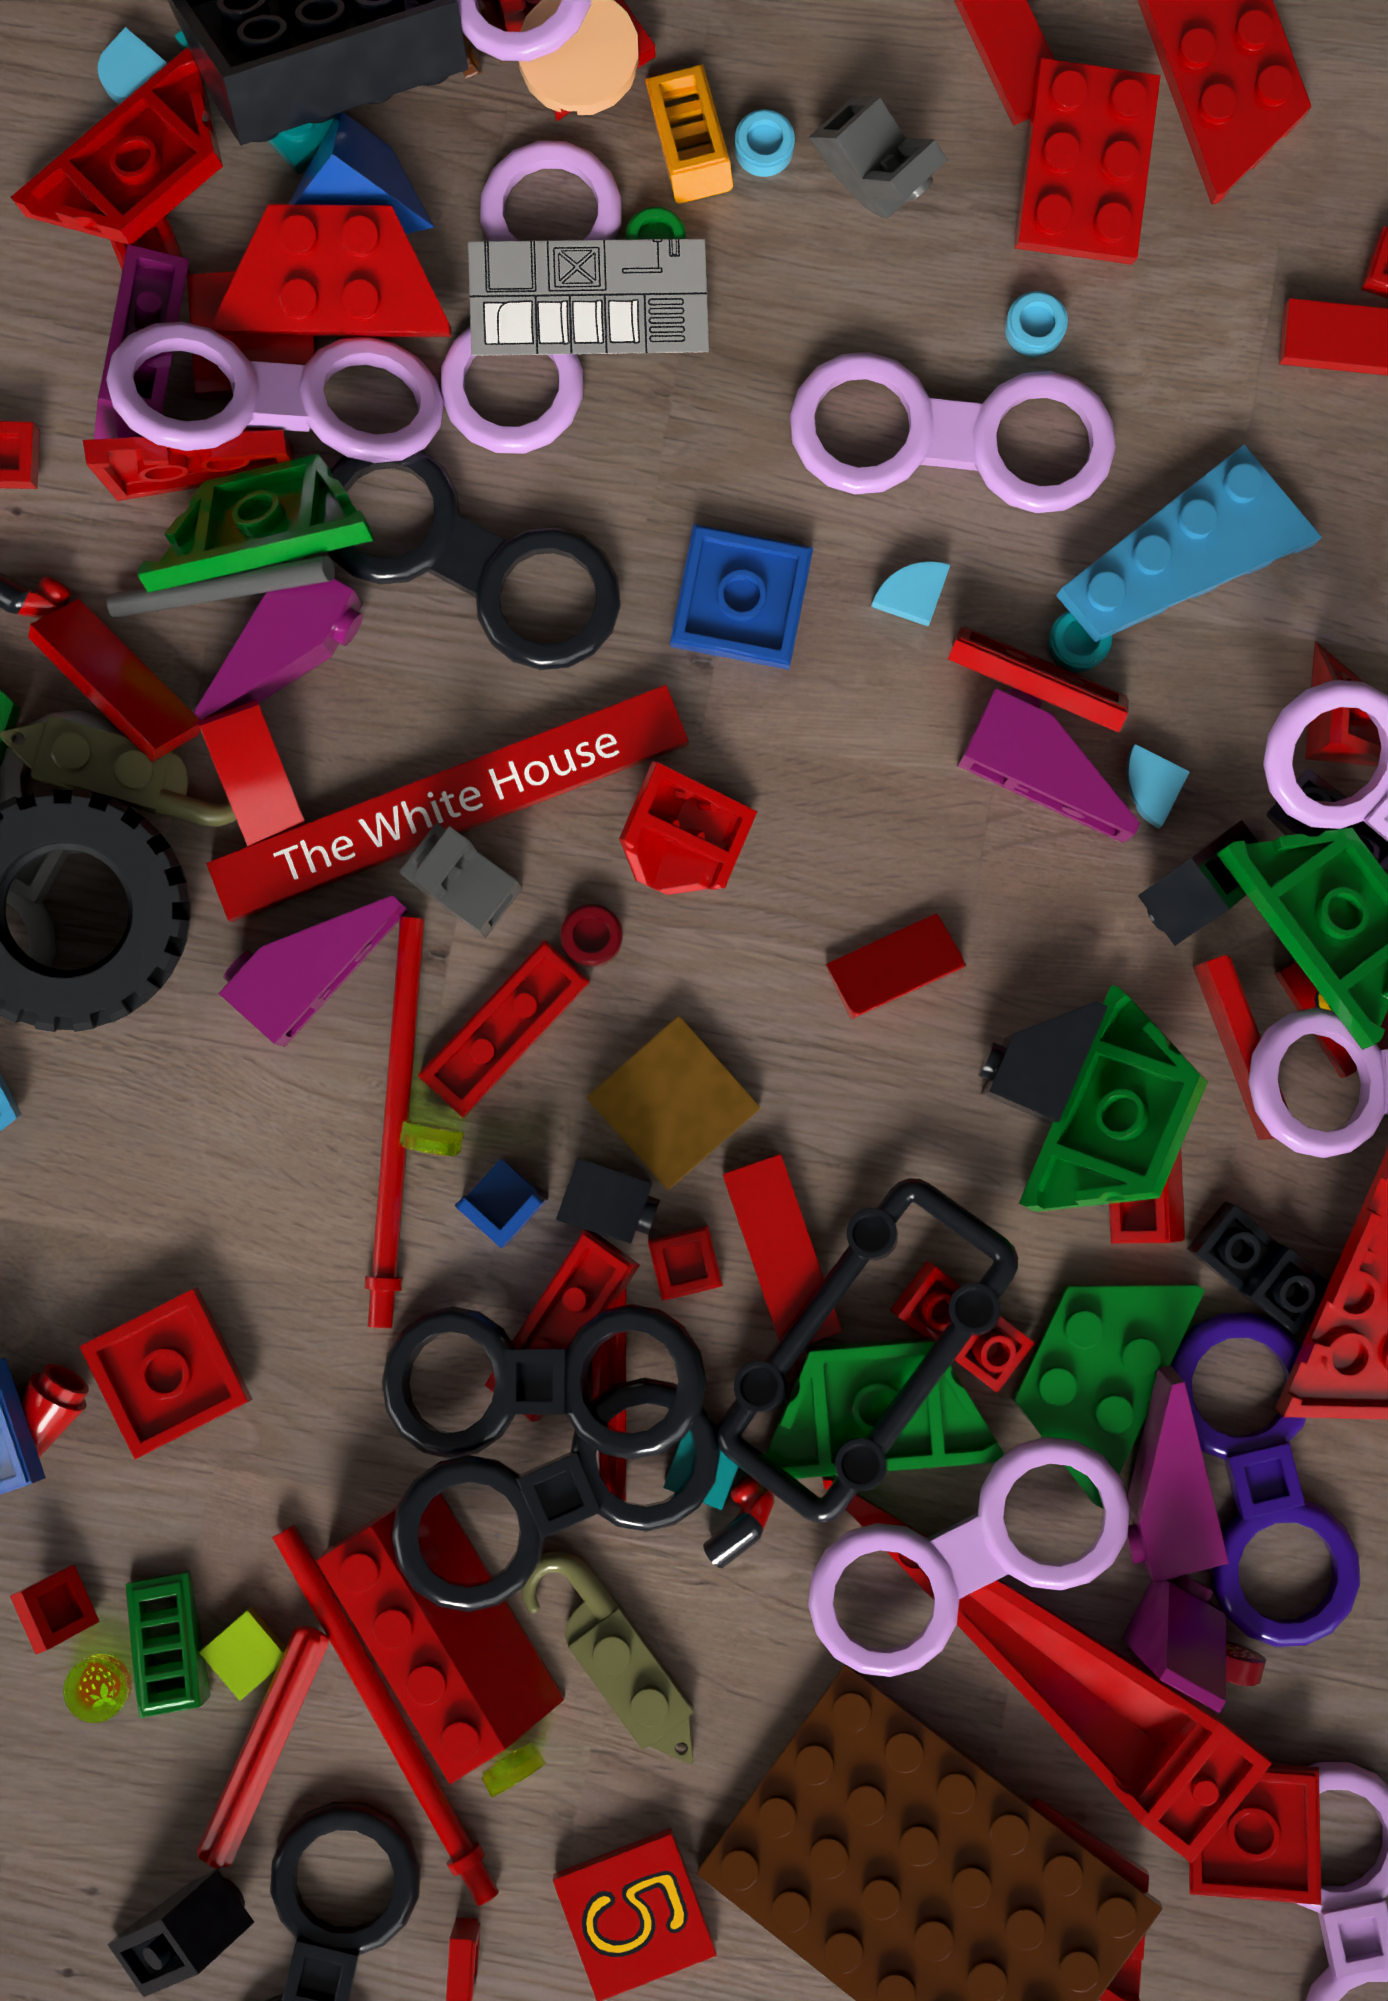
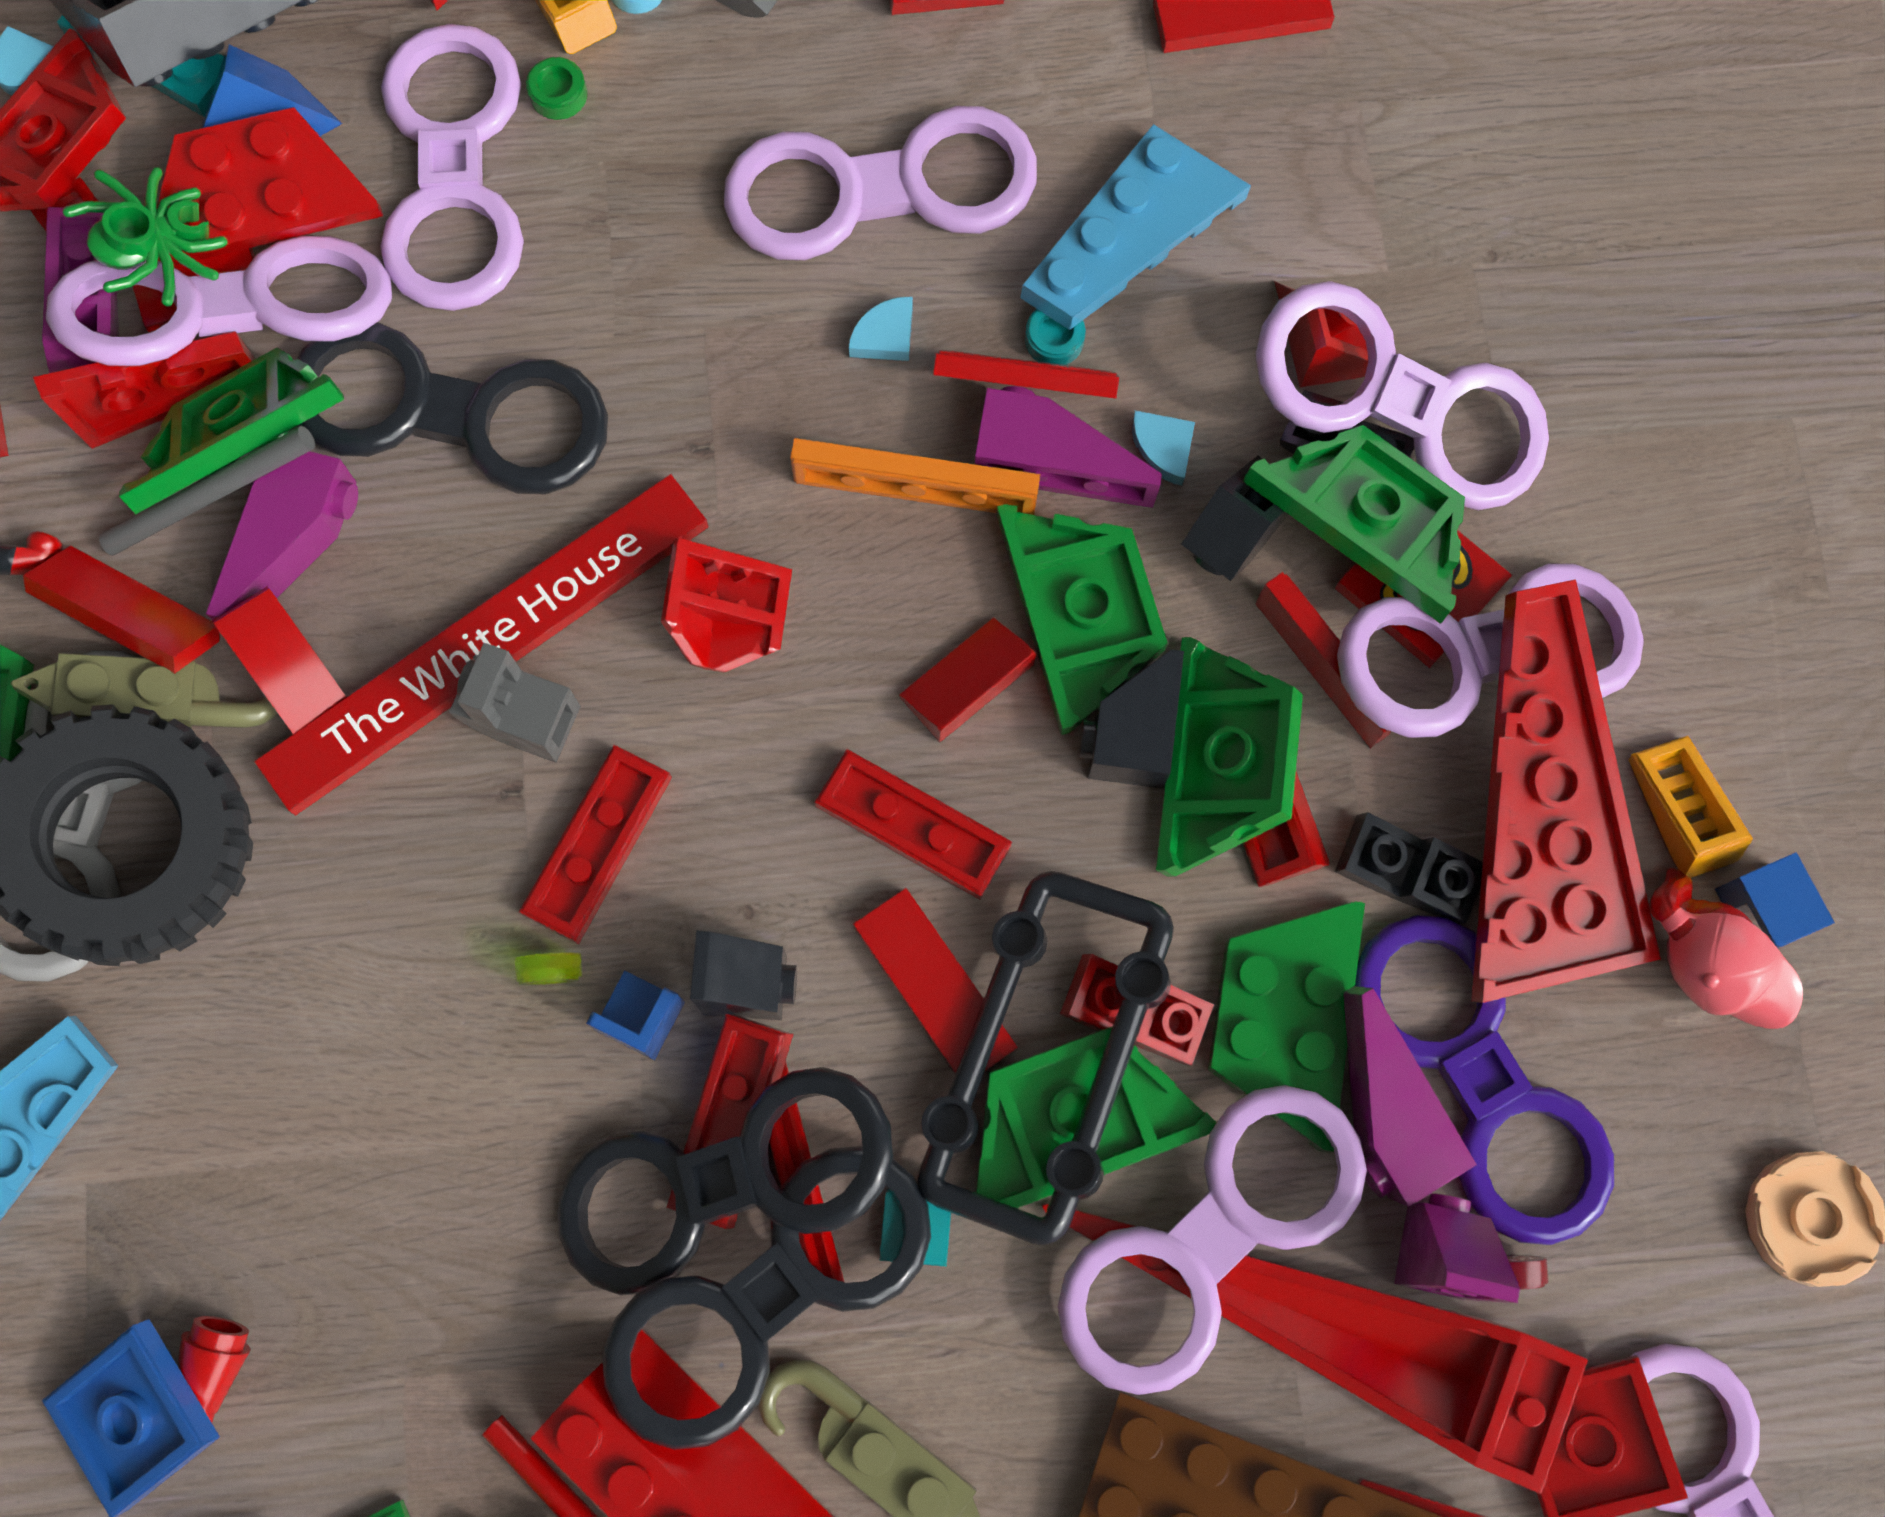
camera: 15 degrees left, 10 degrees down
(166, 1373) = (327, 1290): red plate -> none
(217, 310) = (141, 234): none -> green animal
(297, 974) = (375, 839): magenta slope -> none
(397, 1107) = (535, 1128): red bar -> none
(588, 297) = (503, 148): light grey sticker -> none
(591, 935) = (661, 730): dark red tile -> none
(673, 1103) = (785, 869): pearl gold tile -> none
(685, 1263) = (840, 1024): red tile -> none
(741, 596) = (722, 379): blue tile -> none
(746, 1527) = (977, 1276): arm -> none
(804, 1093) = (913, 824): none -> red tile
(900, 756) = (912, 477): none -> orange tile
(1025, 927) = (1083, 607): none -> green wing
(1036, 324) = (930, 72): medium azure tile -> none

